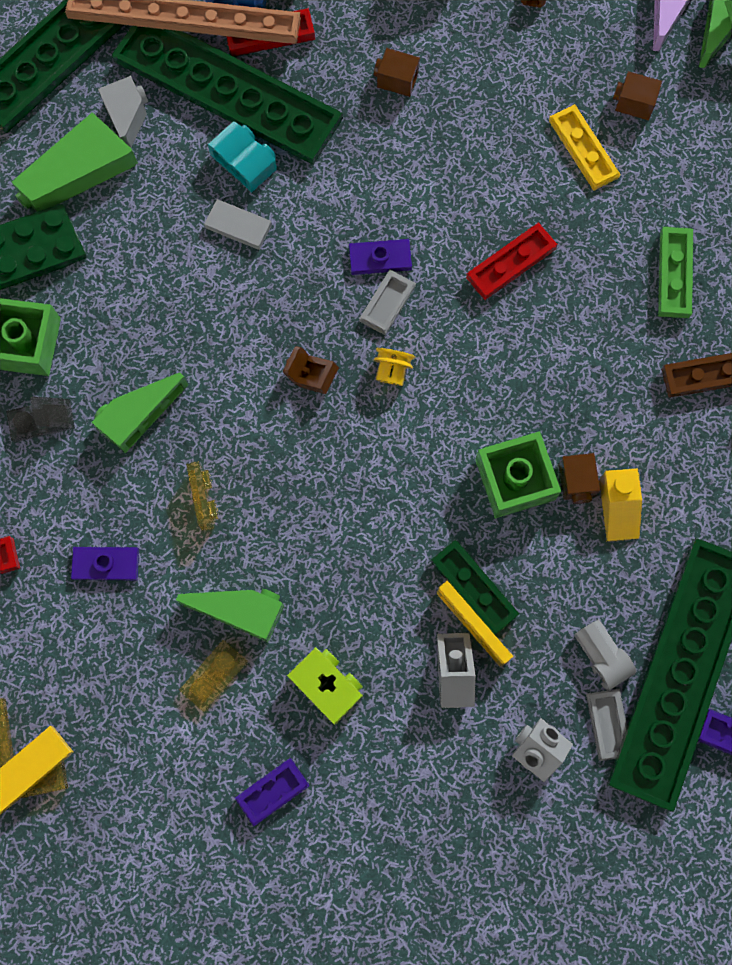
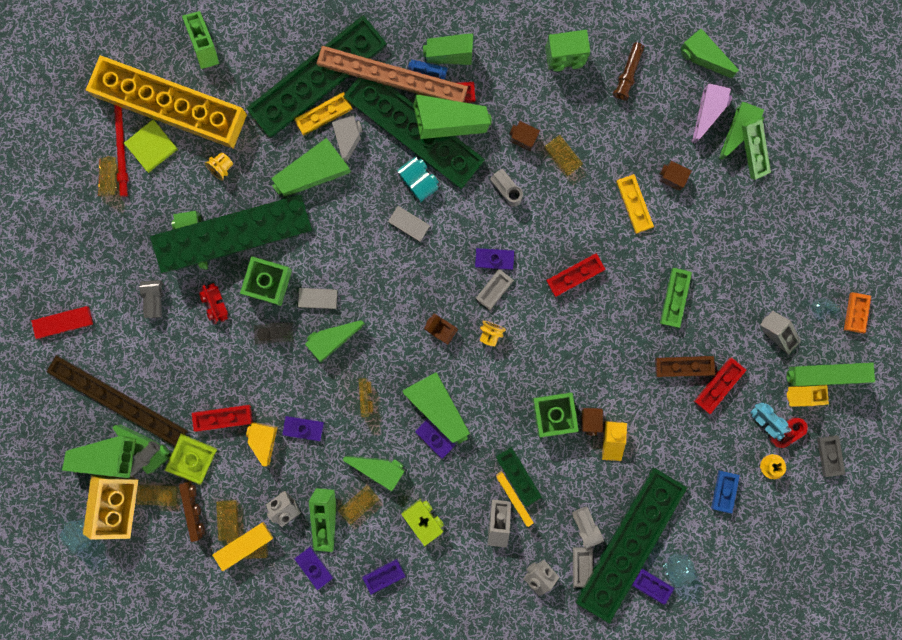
camera: 10 degrees right, 10 degrees up
(38, 592) = (261, 440): none -> yellow slope
(83, 87) = (323, 114): none -> yellow tile
(83, 700) = (282, 509): none -> light grey brick
(106, 355) = (317, 298): none -> light grey tile
(149, 796) = (313, 568): none -> dark purple plate
(155, 708) = (322, 516): none -> bright green slope
(278, 59) = (449, 118): none -> bright green slope
(322, 491) = (435, 403): none -> bright green slope
(326, 546) = (435, 438): none -> dark purple plate
(383, 149) = (506, 187): none -> light grey piece
(462, 93) = (563, 155): none -> clear yellow plate

